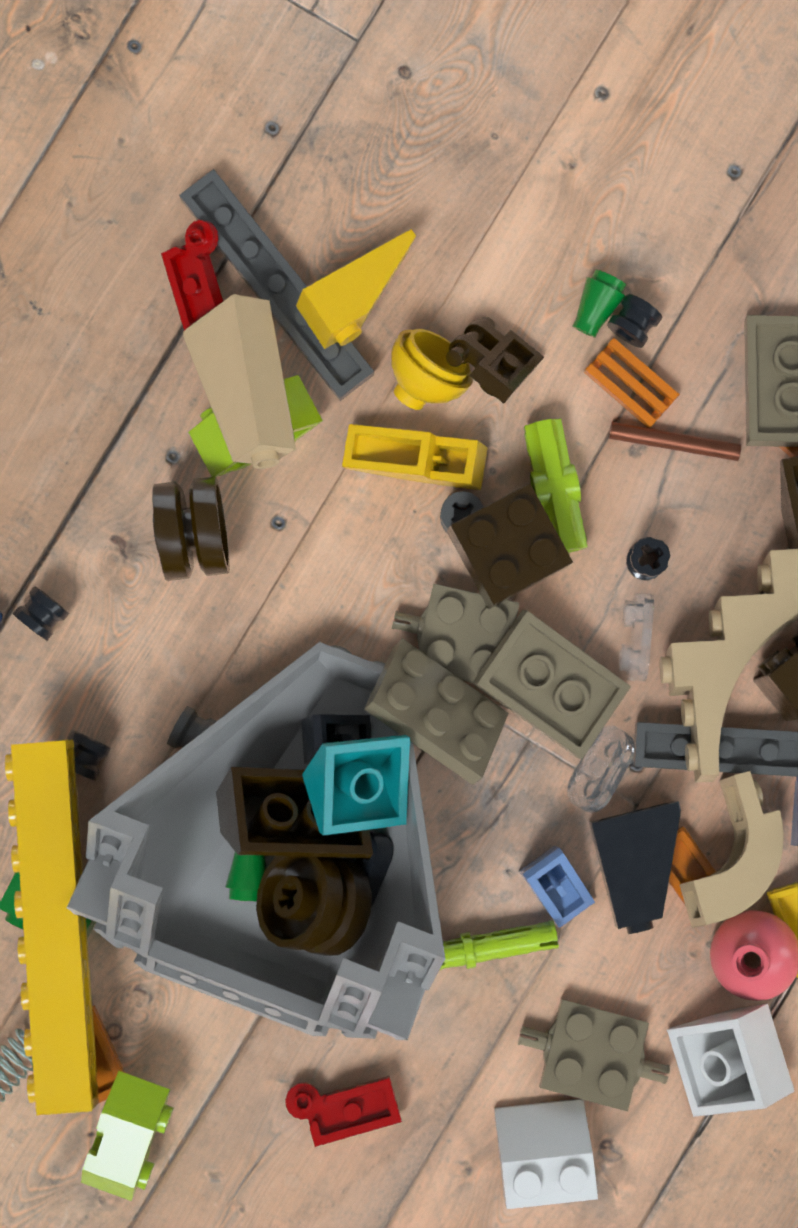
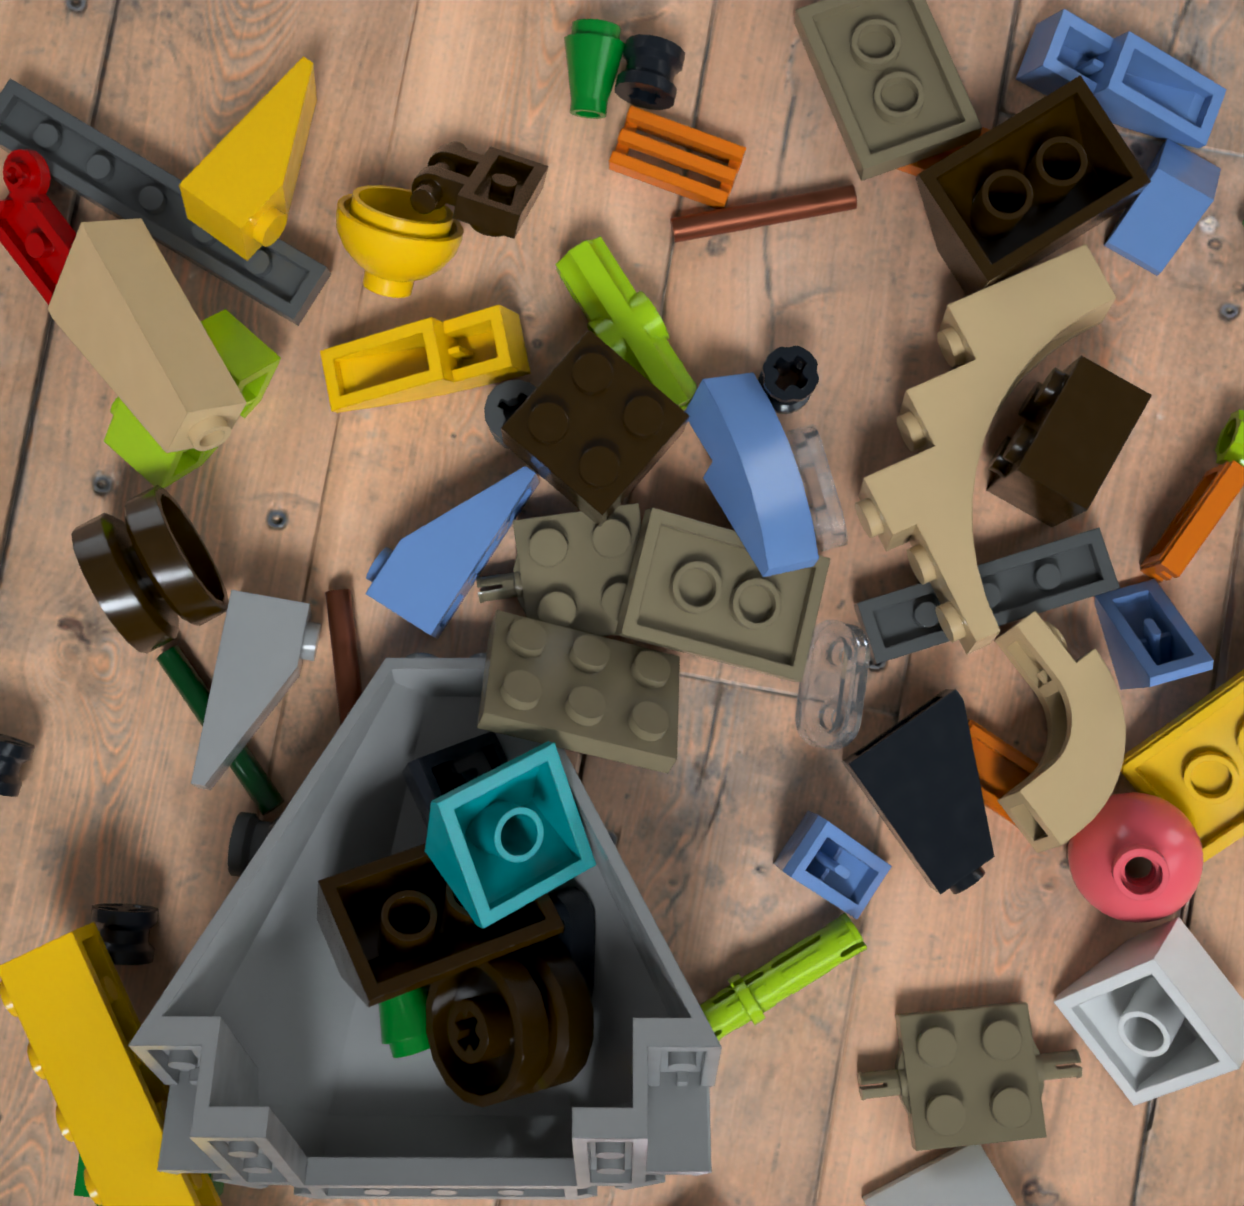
camera: 20 degrees left, 0 degrees up
(192, 647) = (196, 696): none -> dark green bar
(235, 614) = (253, 671): none -> light grey slope
(290, 628) = (344, 650): none -> copper bar
(378, 591) = (440, 561): none -> medium blue slope
(602, 612) = (754, 472): none -> medium blue slope

